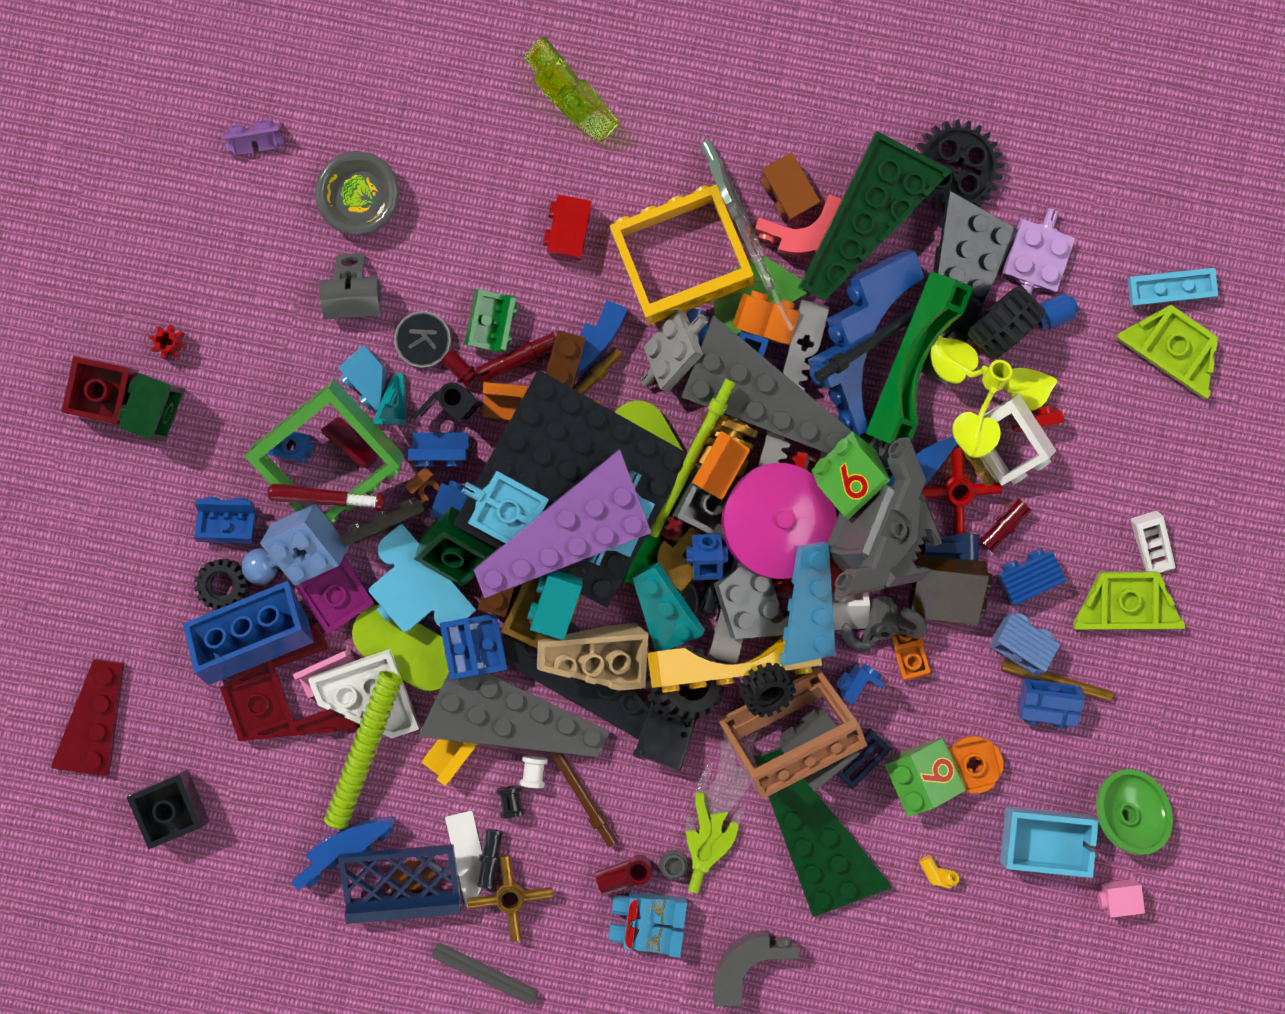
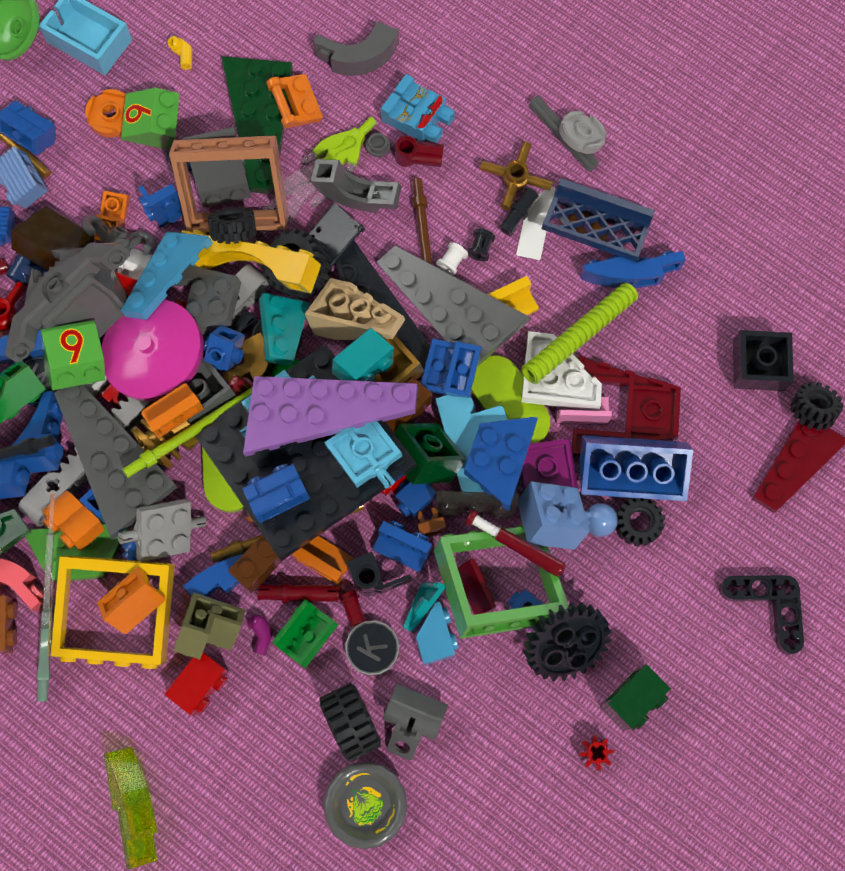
camera: 160 degrees left, 15 degrees down
(54, 570) = (780, 601): none -> black beam
(92, 799) = (821, 417): none -> black tyre
(97, 389) = (675, 736): dark red brick -> none
(225, 520) = (613, 572): blue bracket -> none
(236, 428) = (567, 641): none -> black gear
(379, 575) = (500, 456): none -> blue wing
(404, 257) = (350, 722): none -> black tyre
(463, 982) = (582, 132): none -> light grey tile
(533, 304) = (263, 632): none -> magenta arm
(570, 428) = (275, 492): none -> blue brick
(585, 283) = (210, 623): none -> olive brick
(664, 266) = (130, 601): none -> orange panel
(668, 797) = (351, 191): none -> dark grey arch
(779, 876) = (300, 98): none -> orange plate

